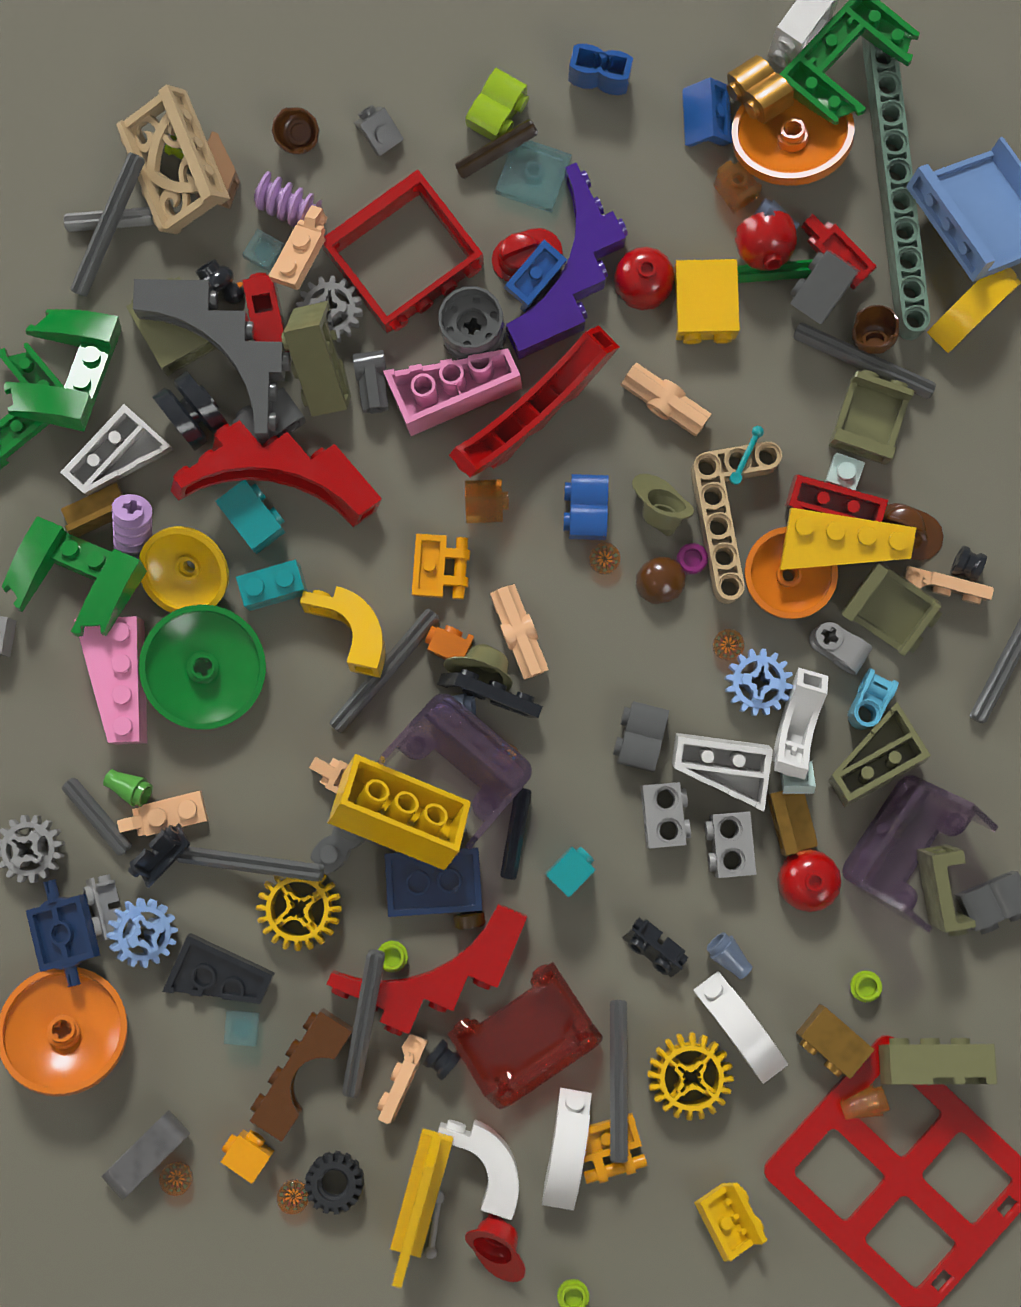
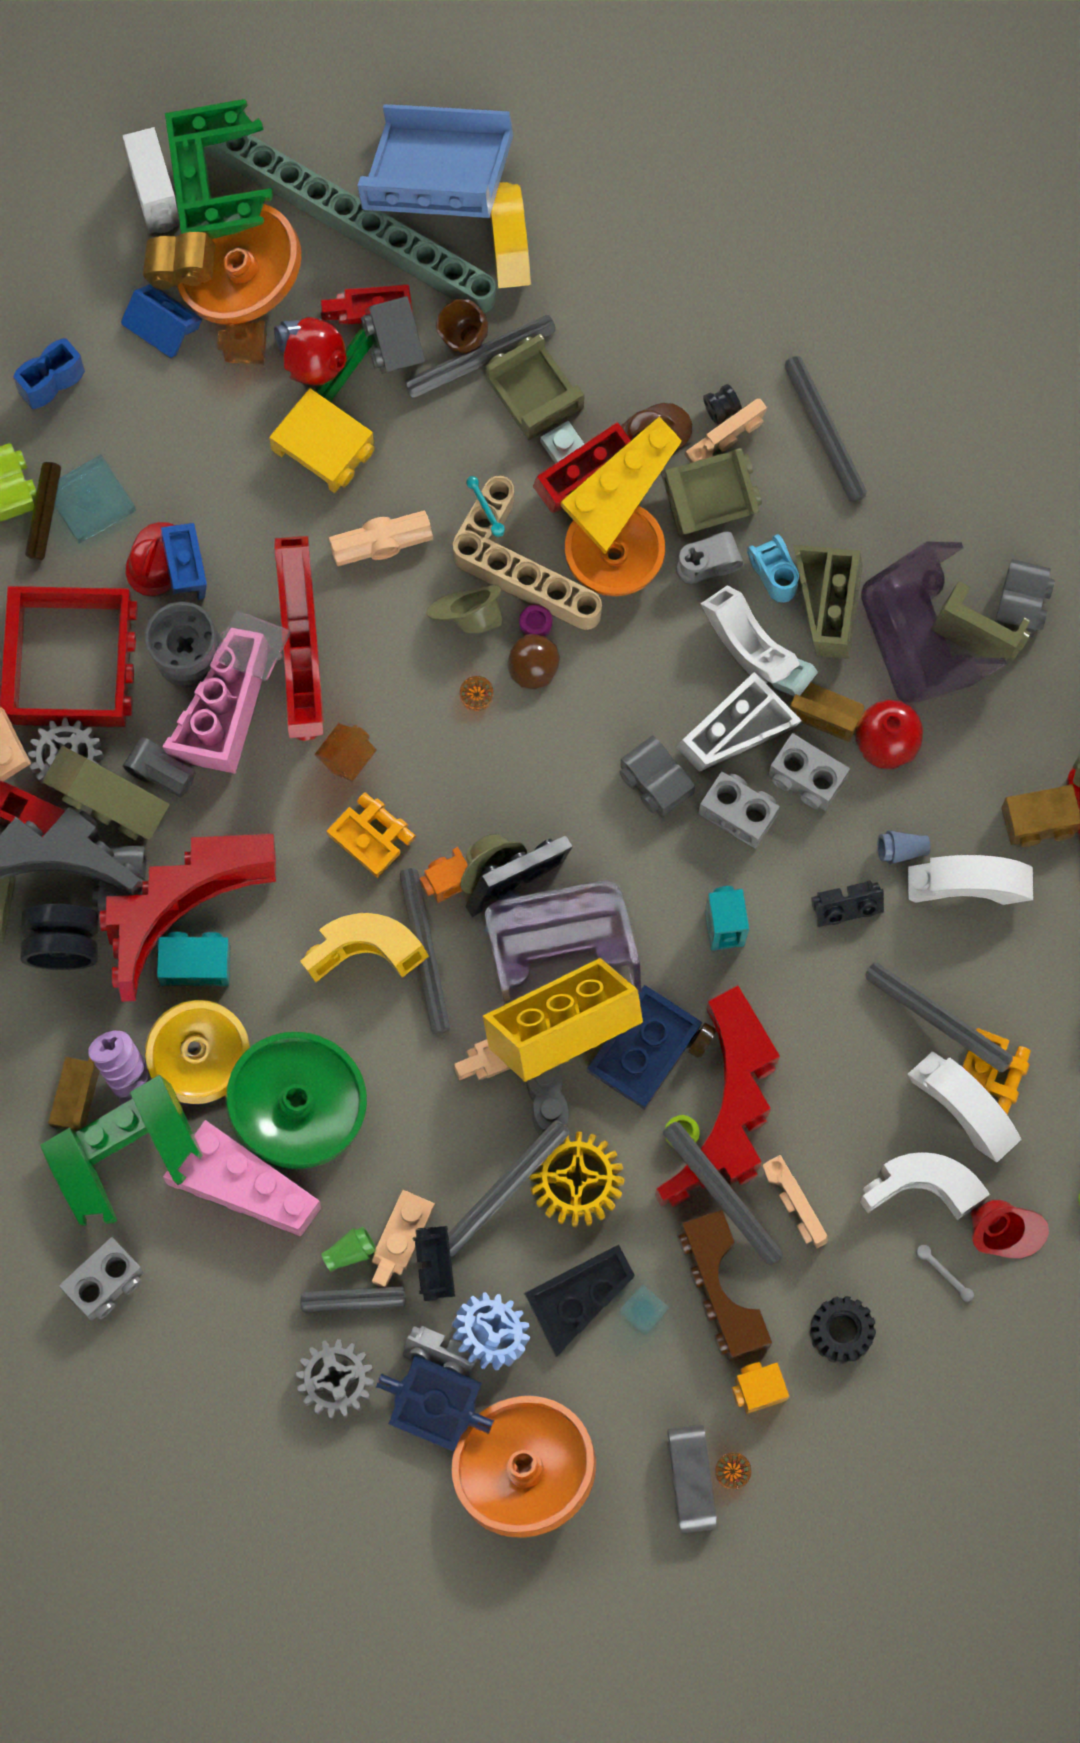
camera: 55 degrees left, 10 degrees down
(115, 452) = (39, 1031): white wedge -> none
(271, 585) = (271, 987): teal brick -> none
(292, 1197) = (828, 1378): clear orange tile -> none
(420, 1199) = (912, 1259): yellow fence -> none
(442, 1059) = (806, 1154): black wheel -> none
(505, 373) = (251, 645): none -> clear piece
(515, 834) = (660, 949): black axle -> none
(519, 631) = (483, 810): light nougat piece -> none
(526, 1039) = (843, 1064): clear red windscreen -> none
(558, 314) = (189, 491): dark purple arch -> none
(587, 507) = (421, 672): blue brick -> none
(644, 278) = (259, 477): red cylinder -> none
(699, 1063) = (977, 942): yellow gear -> none
(728, 644) = (634, 648): clear orange tile -> none
(744, 680) = (686, 631): light blue gear -> none
(866, 986) = (1015, 756): lime plate -> none

